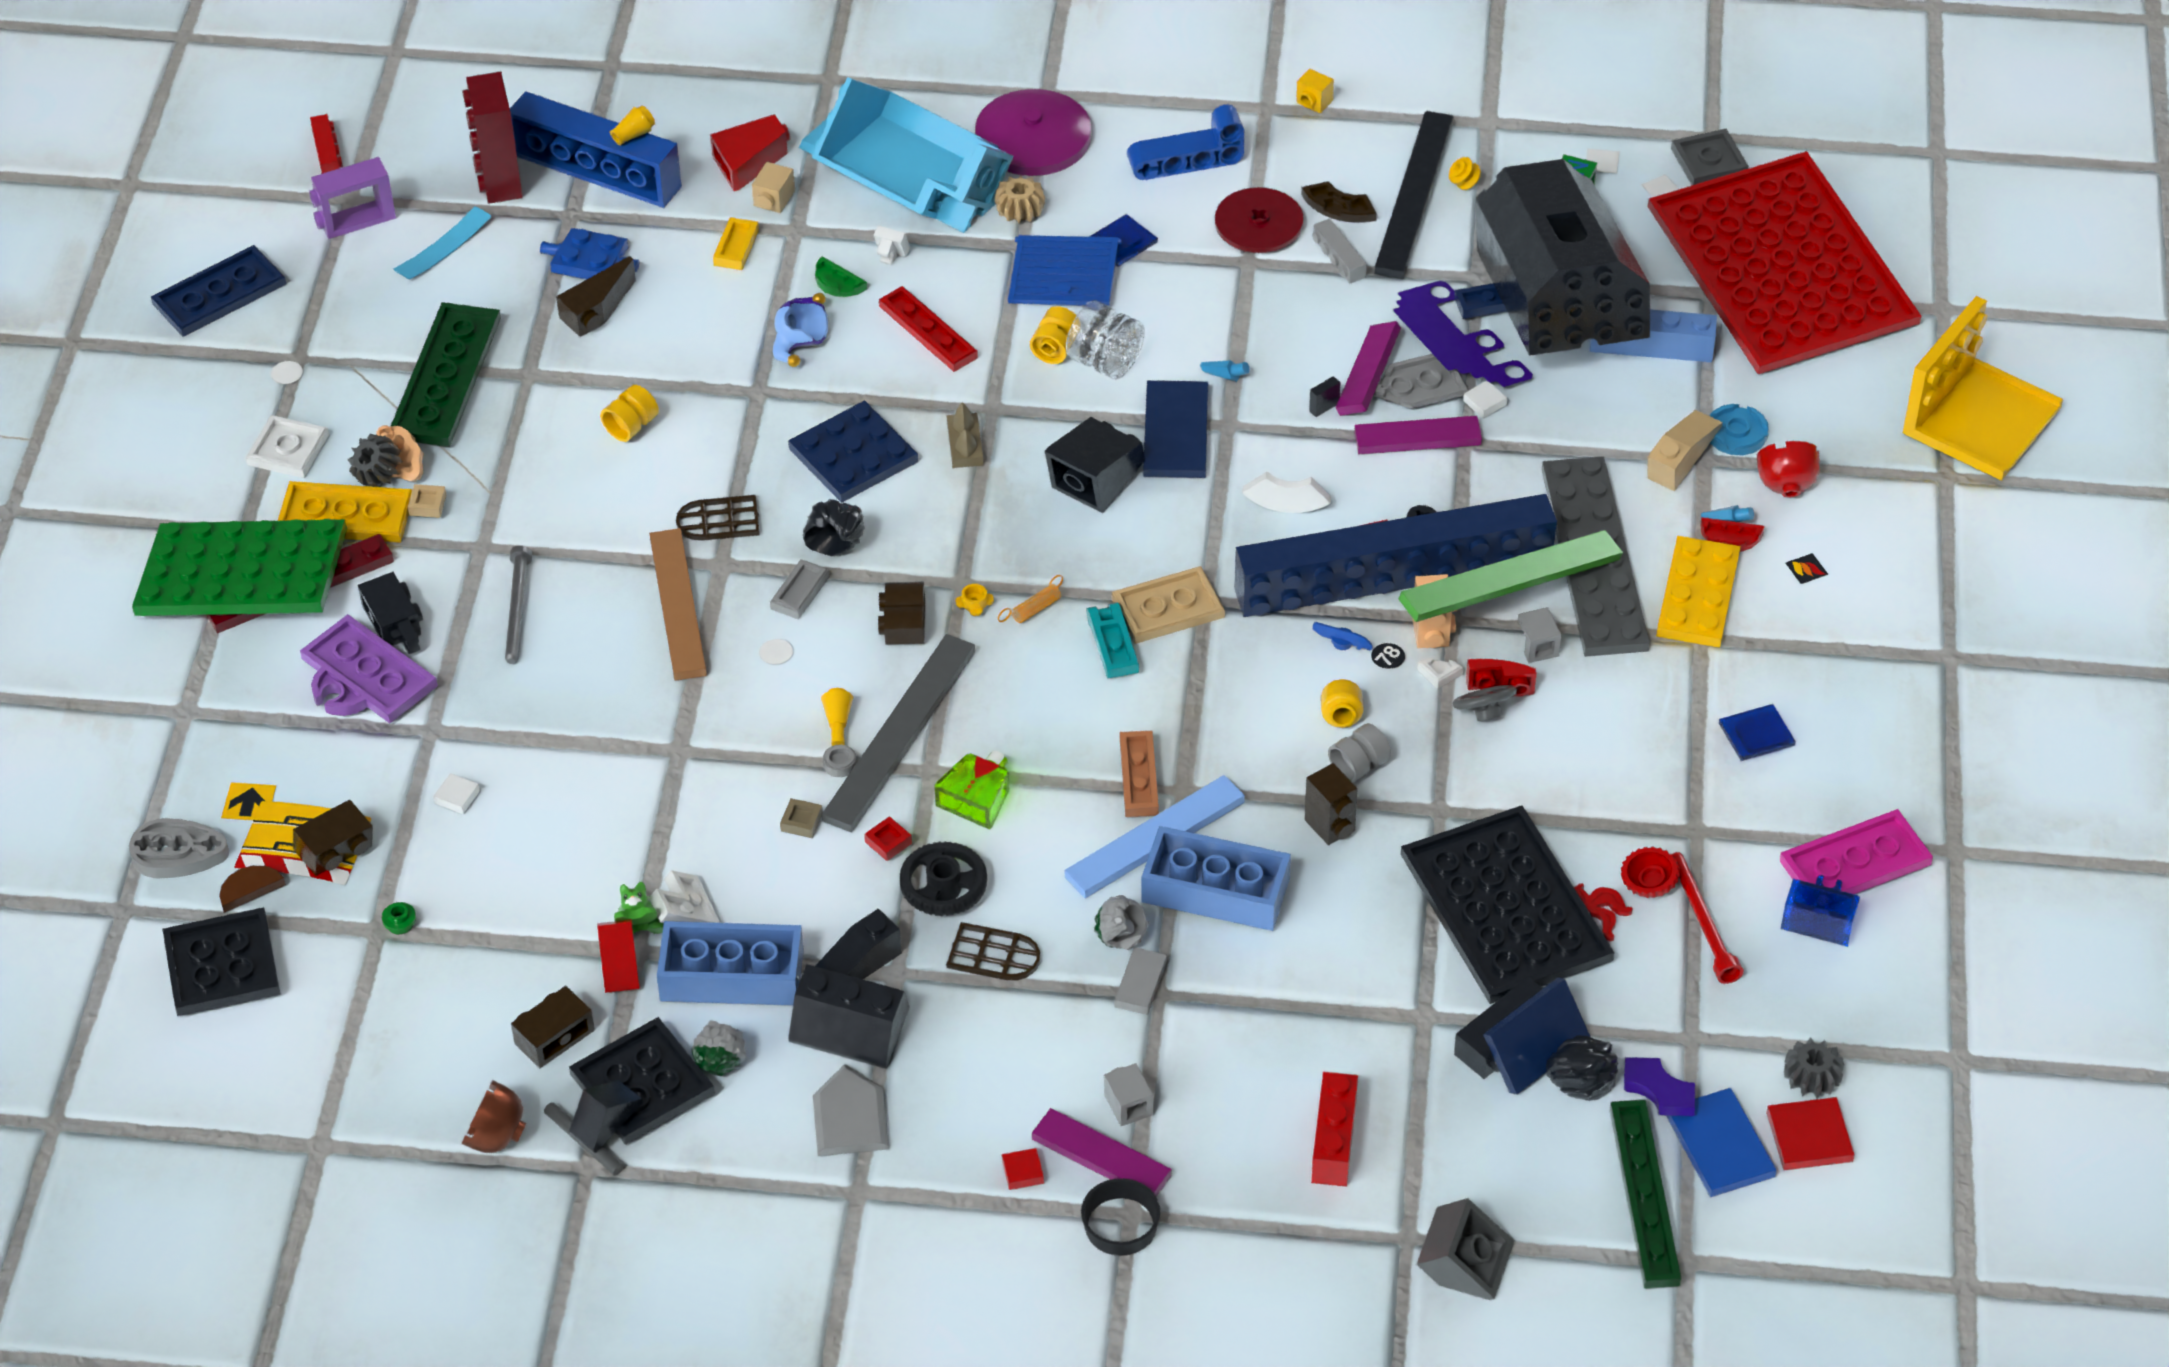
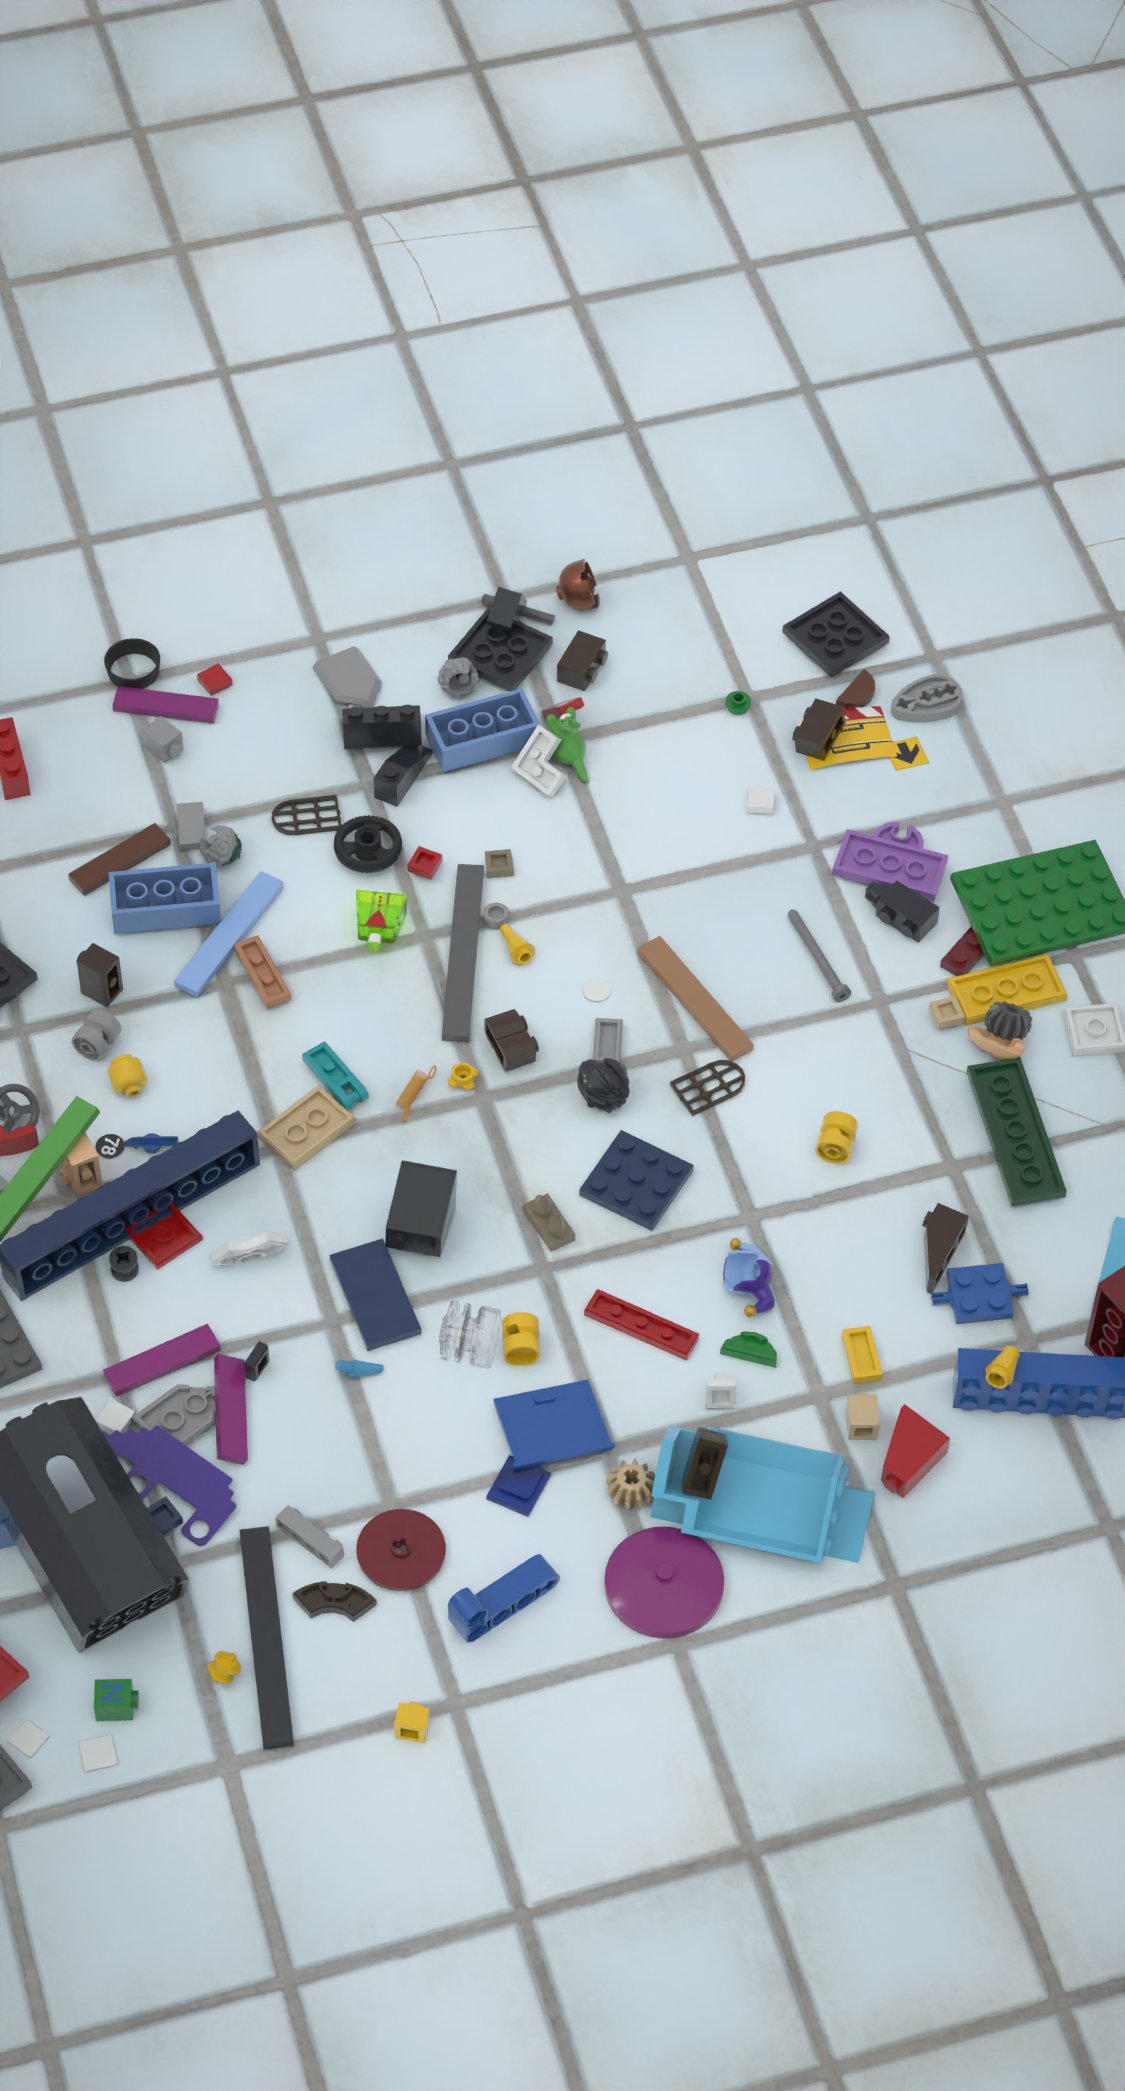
camera: 155 degrees right, 5 degrees up
(945, 159) = (704, 1463): none -> dark brown brick
(1245, 967) = (119, 858): none -> reddish brown tile

